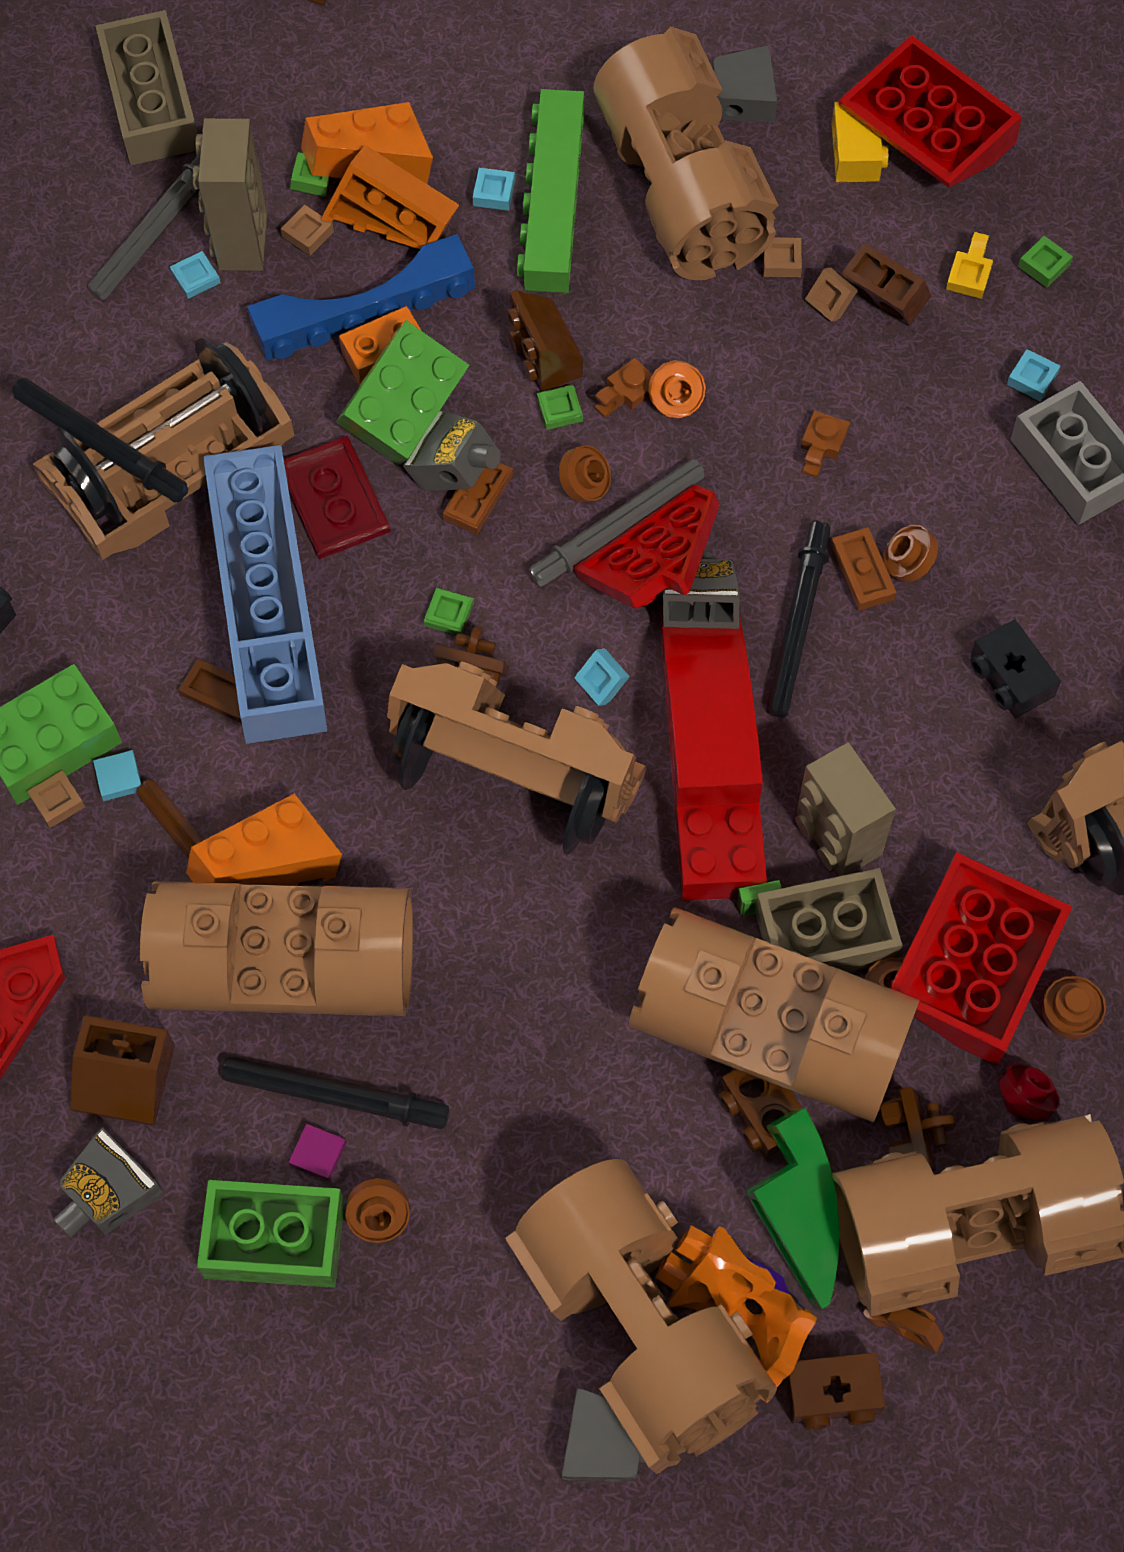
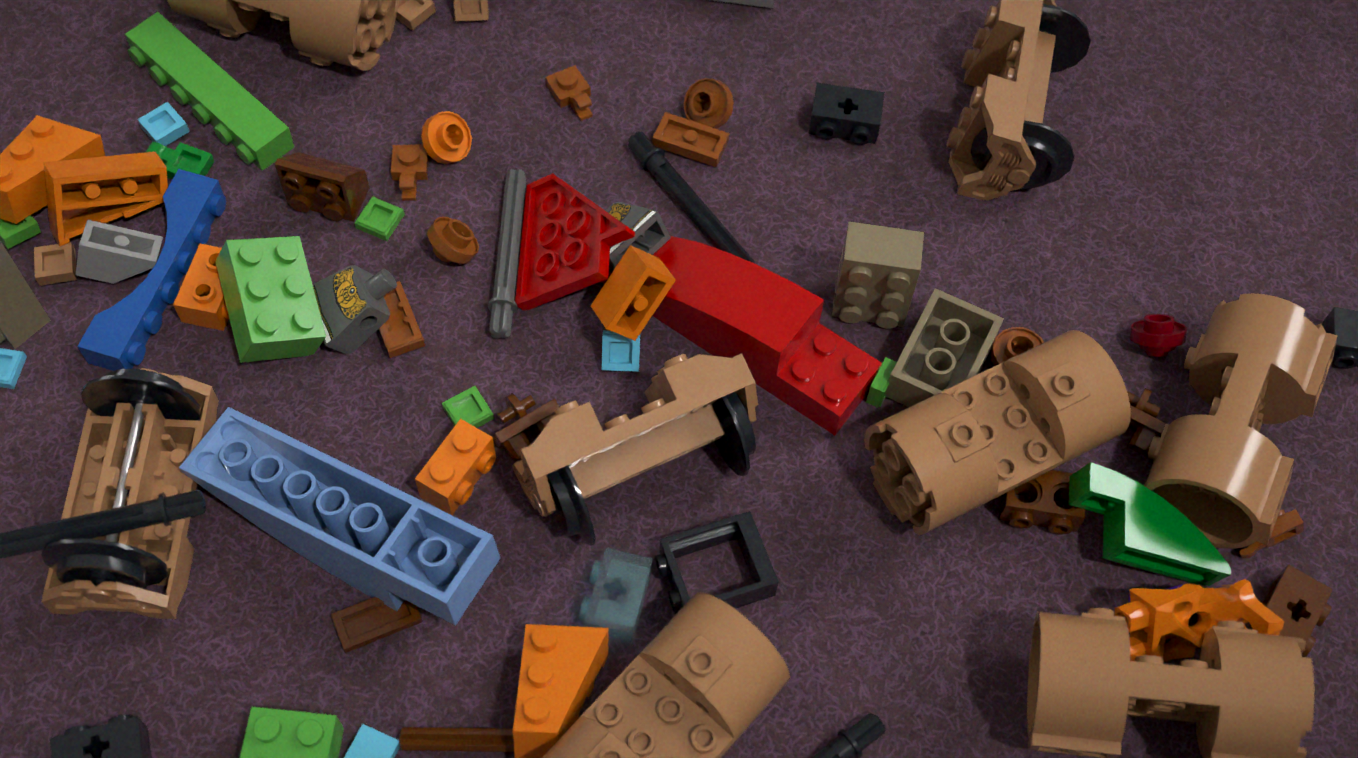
camera: 55 degrees left, 5 degrees down
(334, 497) = (300, 409): dark red tile -> none
(348, 258) = (115, 252): none -> light grey slope
(369, 859) = (622, 573): none -> clear light blue brick
(386, 642) = (456, 467): none -> orange brick
(473, 230) = (184, 158): none -> green plate
(506, 918) = (737, 527): none -> black window
(641, 638) = (632, 293): none -> orange brick
(980, 956) = (1046, 279): red slope -> none
(1073, 1007) = (1114, 265): dark orange plate -> none

